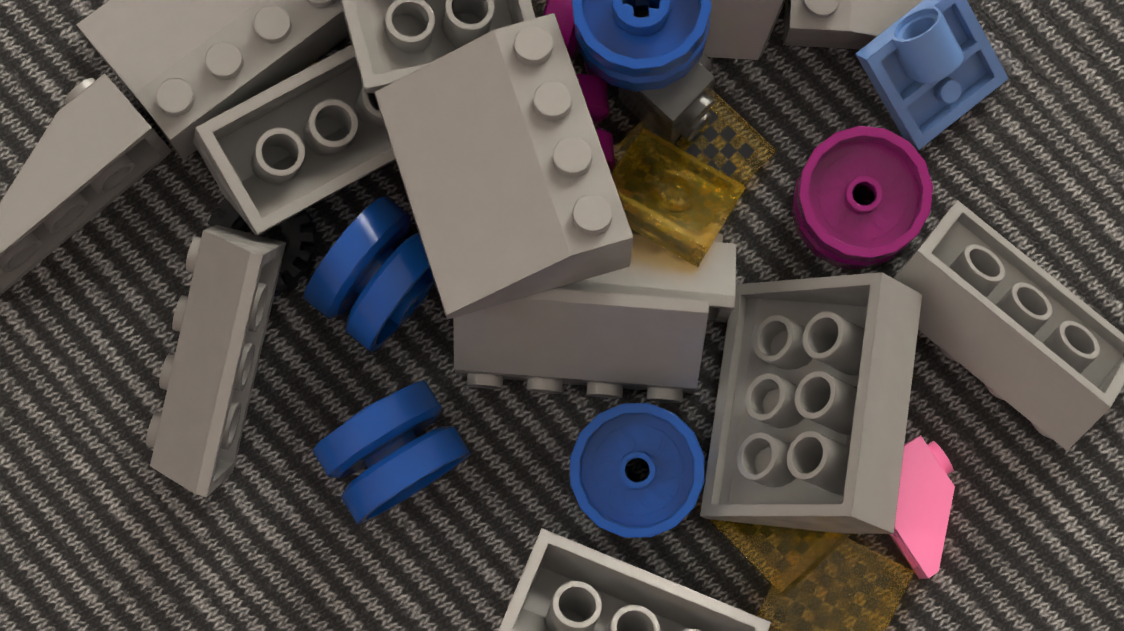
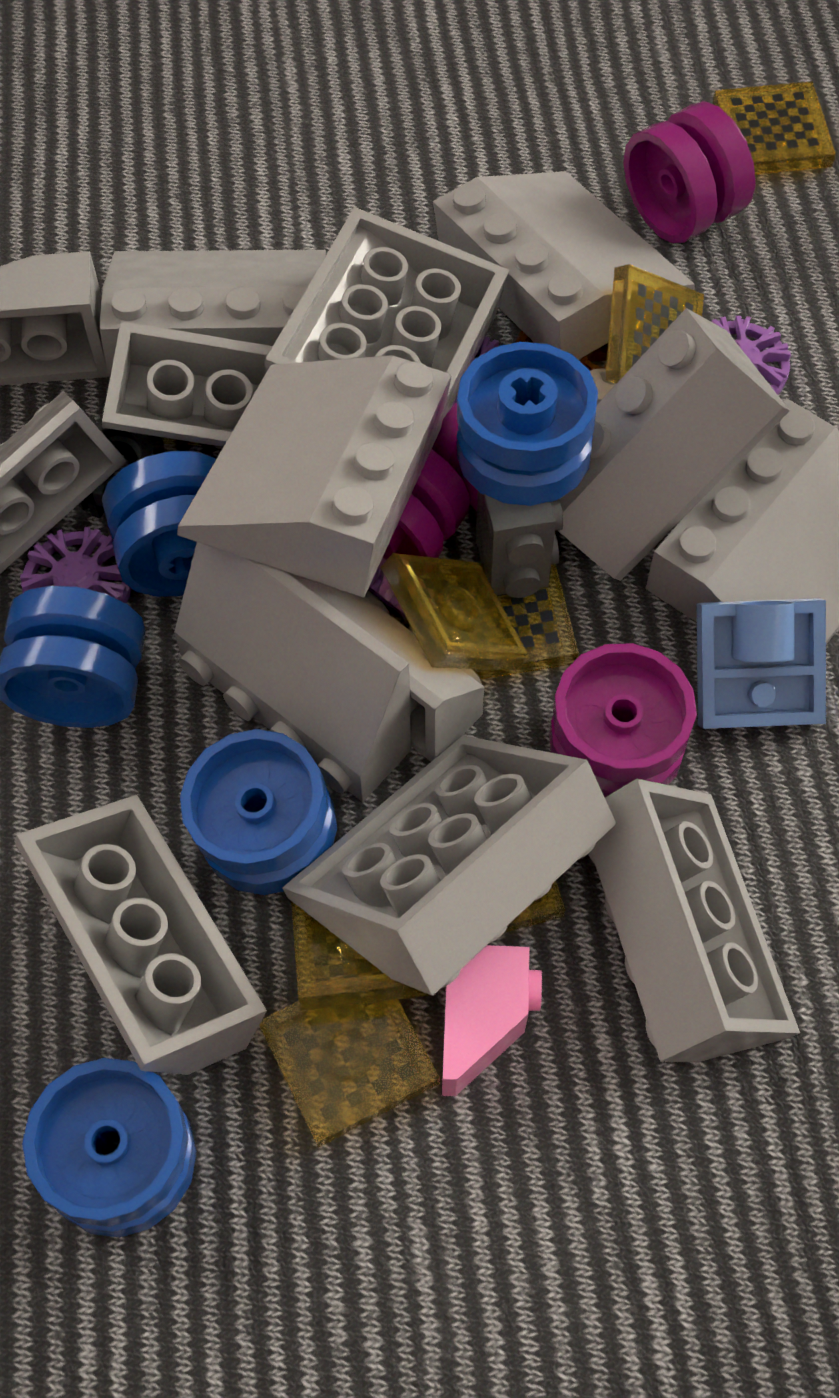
camera: 35 degrees right, 20 degrees down
(312, 368) = (75, 568): none -> medium lavender wheel

